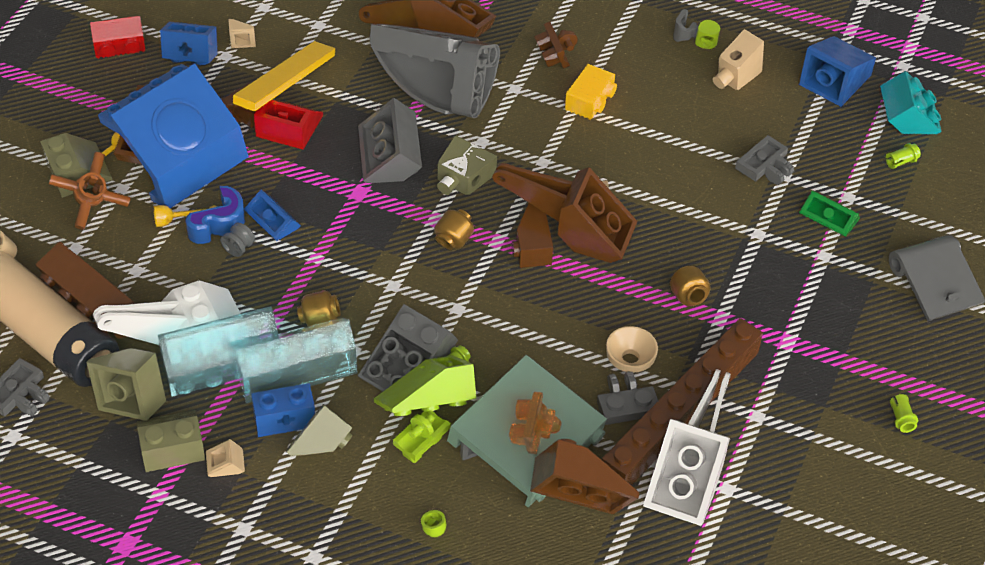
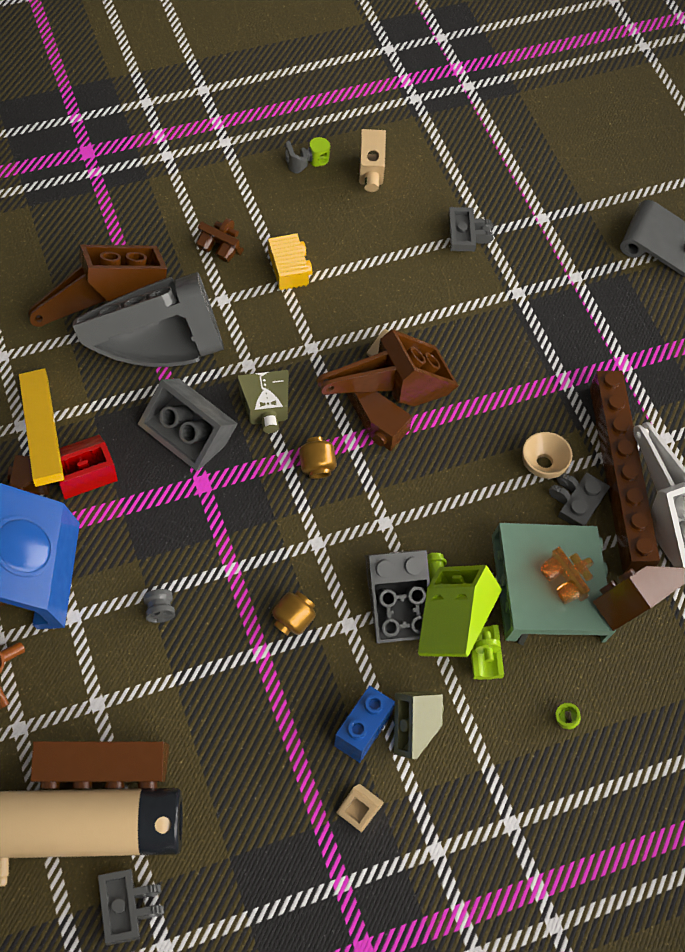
camera: 45 degrees left, 10 degrees up
(127, 383) = (226, 816): olive slope -> none
(164, 215) = (69, 635): yellow hinge -> none
(170, 440) = (300, 827): olive slope -> none
(180, 309) = (206, 719): white slope -> none
(203, 353) = (266, 720): clear light blue slope -> none
(217, 219) = (124, 602): blue animal -> none
(271, 216) = (157, 561): blue slope -> none
(296, 358) = (329, 671): clear light blue slope -> none
(690, 286) = (527, 371): pearl gold head -> none
(829, 213) = (548, 241): green slope -> none
(835, 69) = (440, 120): blue slope -> none
(909, 153) = (548, 155): lime pin -> none
(910, 105) = (513, 115): teal slope -> none

